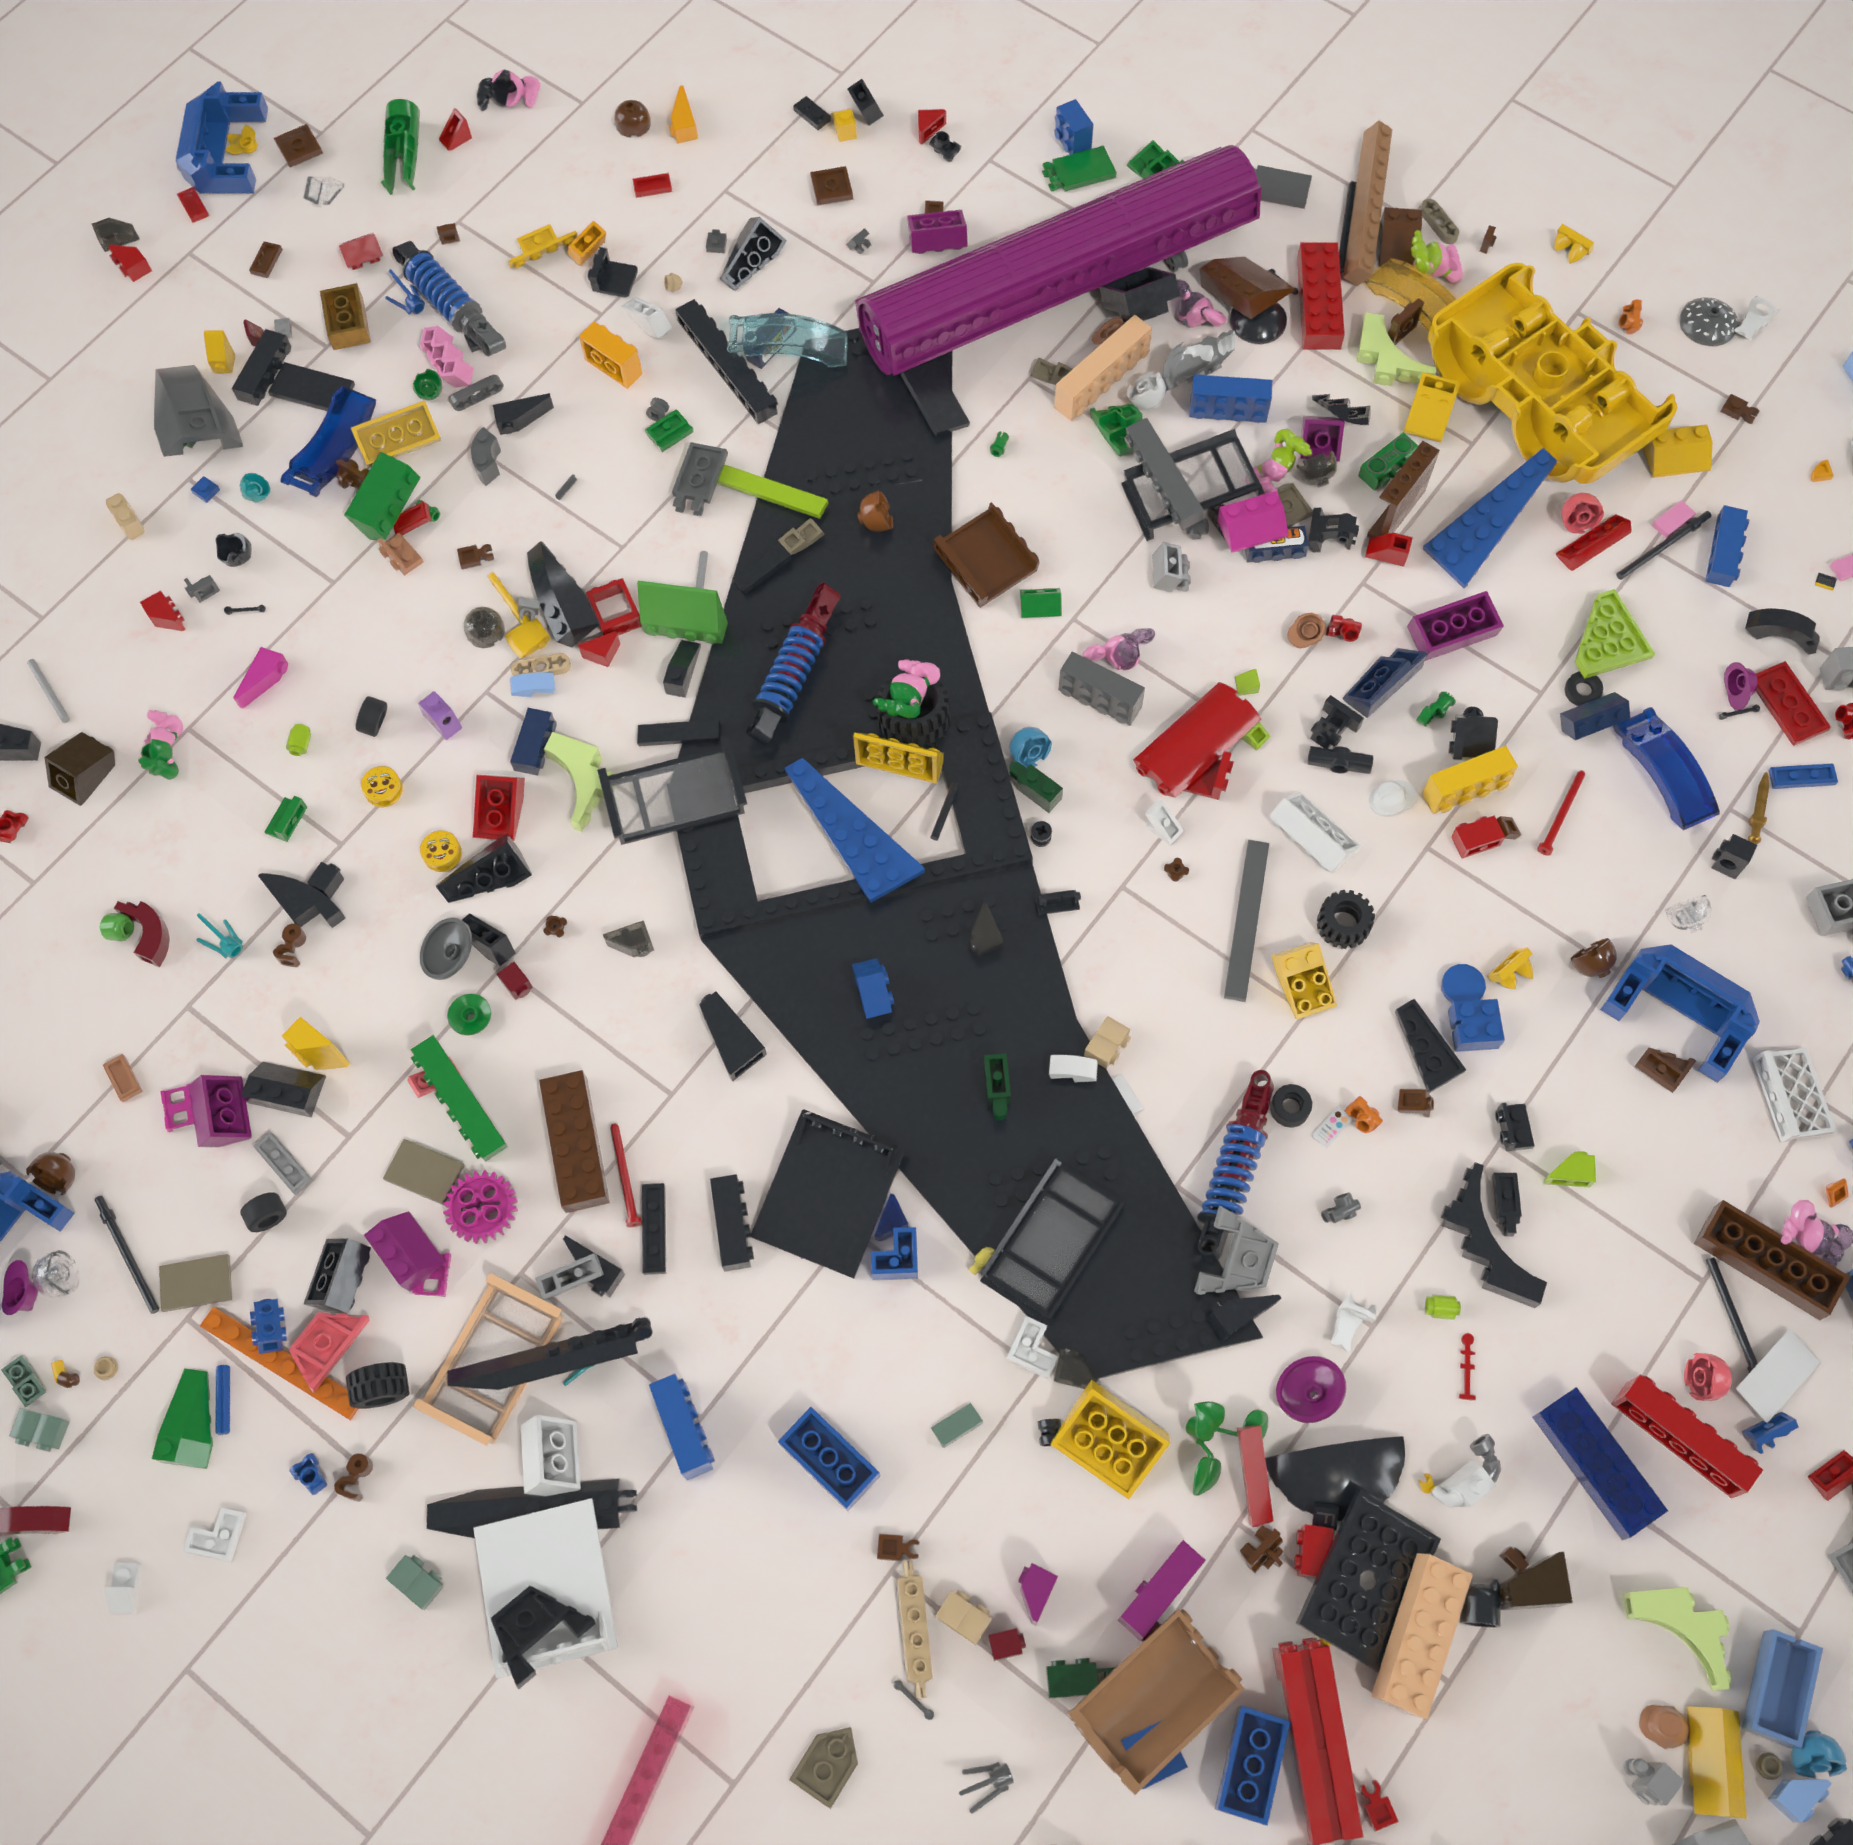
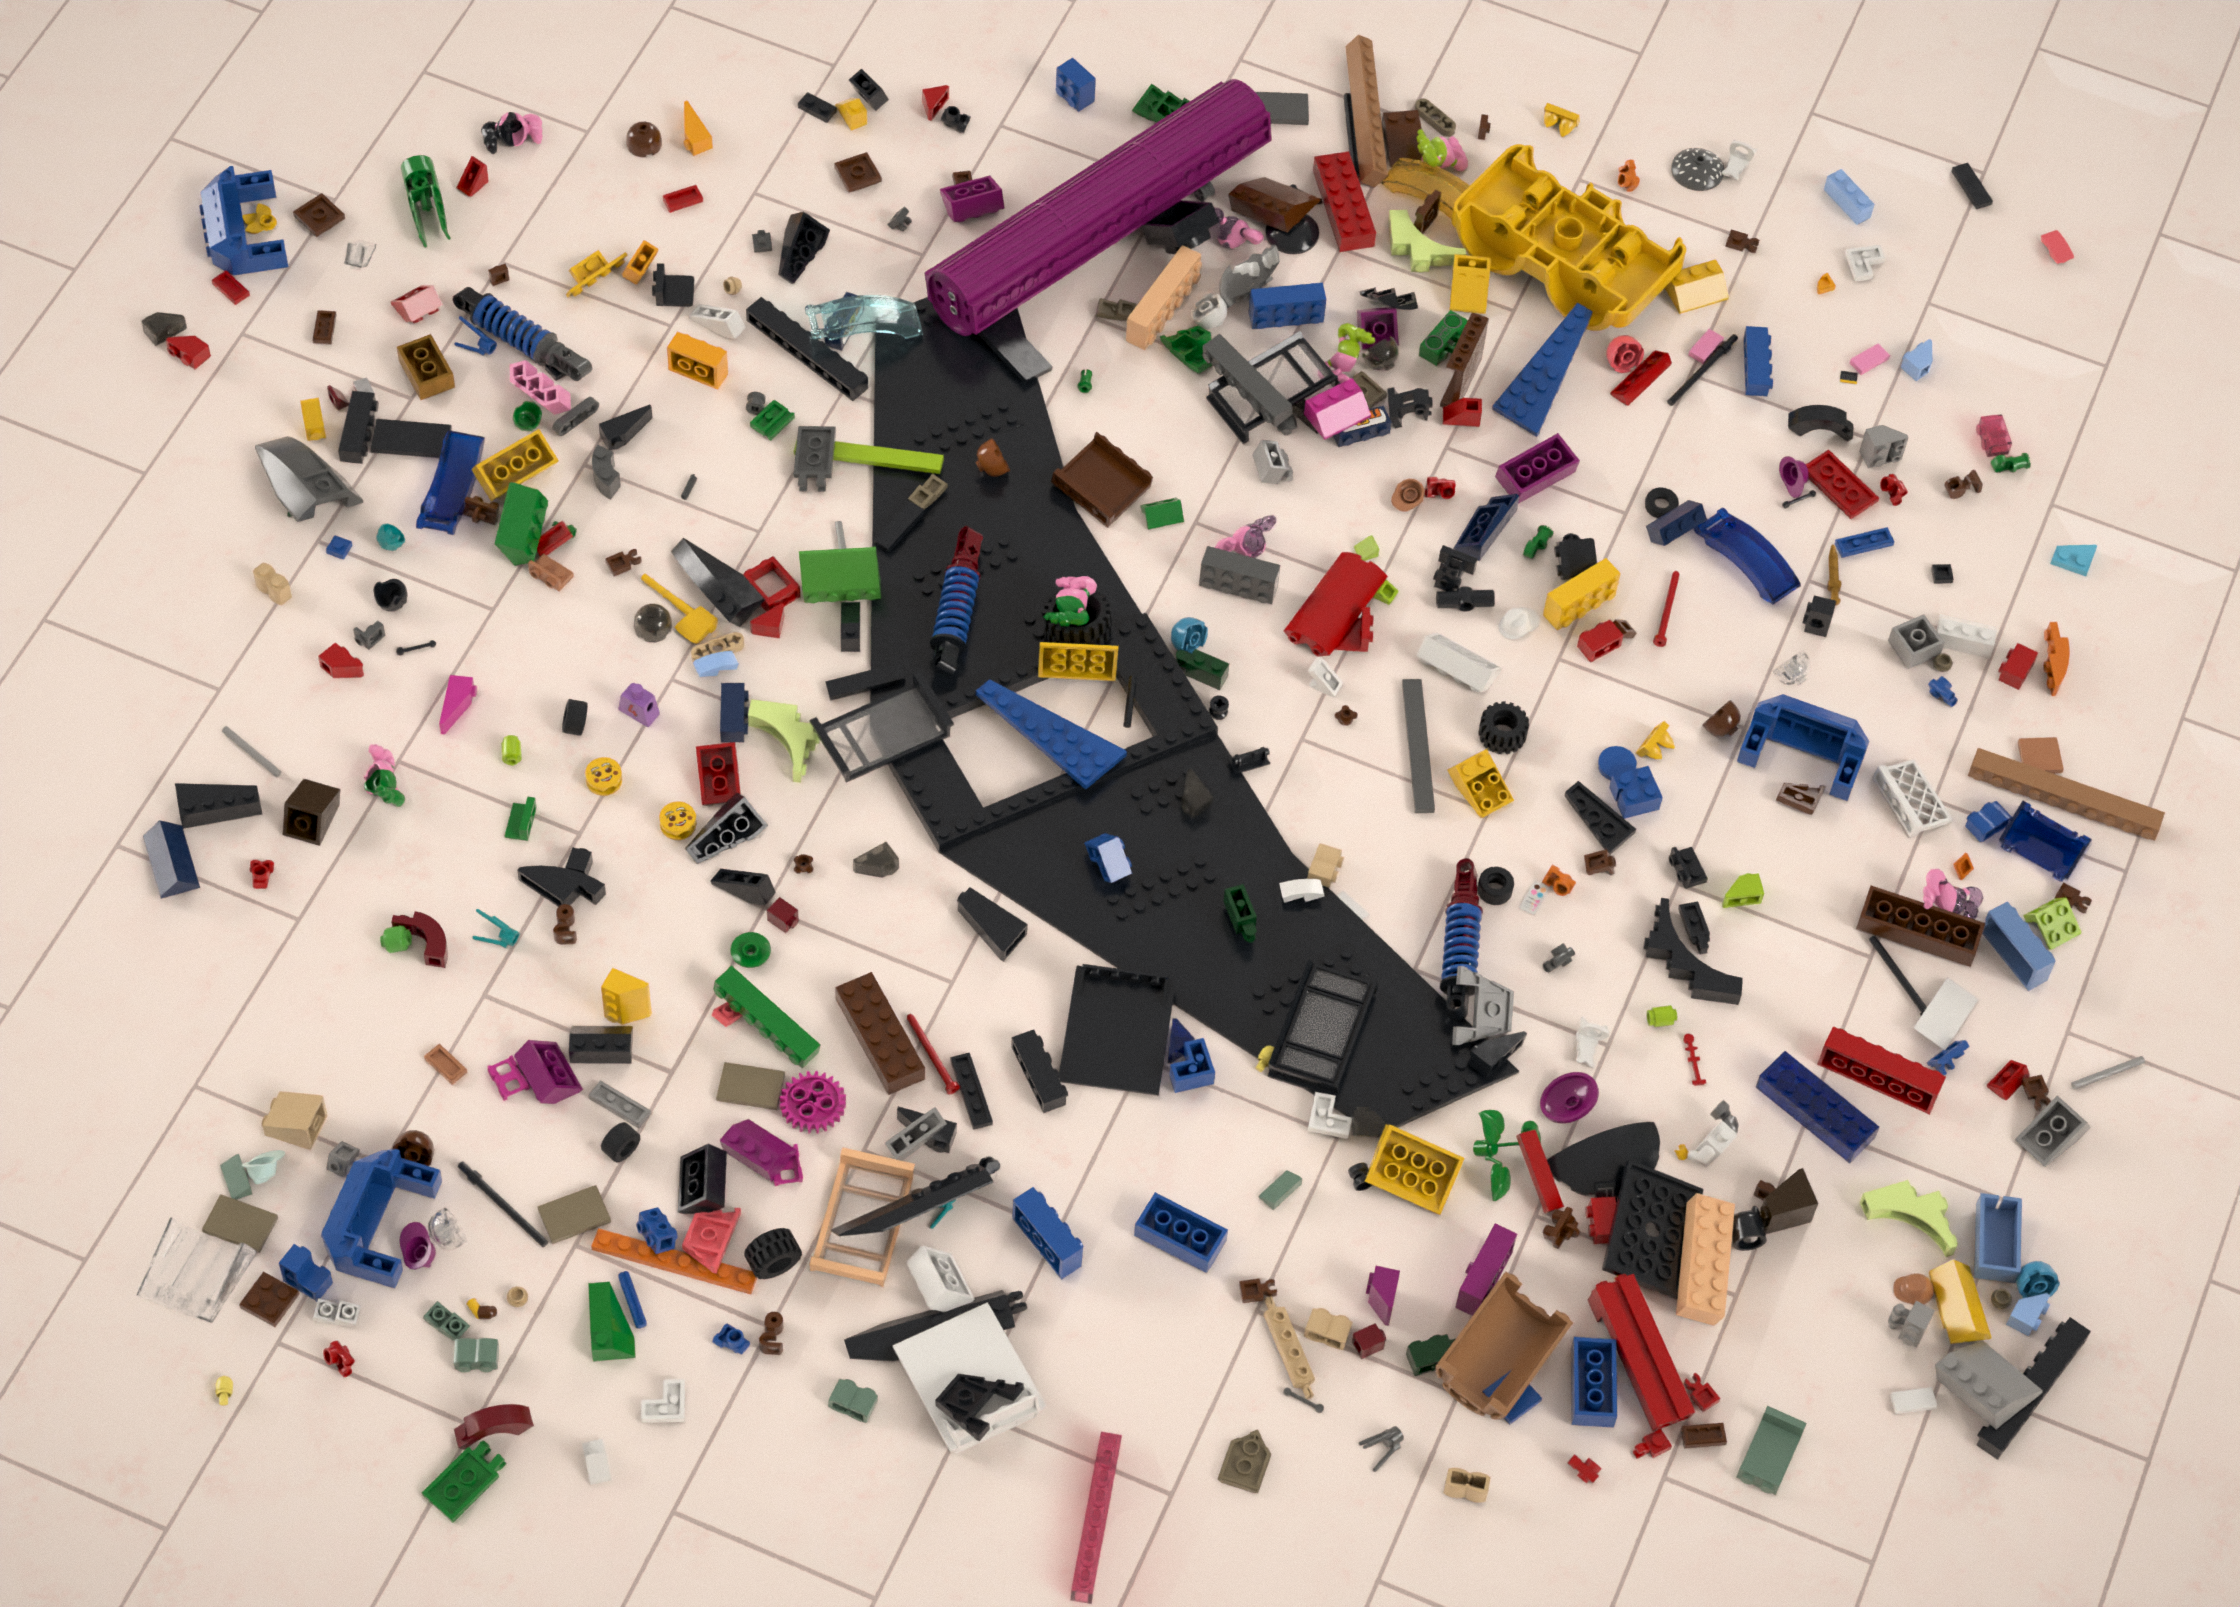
camera: 20 degrees left, 10 degrees down
(445, 948) = (707, 893): dark grey dish -> none
(528, 606) = (692, 596): light grey tile -> none
(1079, 169) = (1089, 121): green tile -> none
(1107, 330) = (1158, 264): nougat hat -> none
(1610, 638) = (1674, 455): lime plate -> none
(1707, 1377) = (1889, 1024): coral cylinder -> none

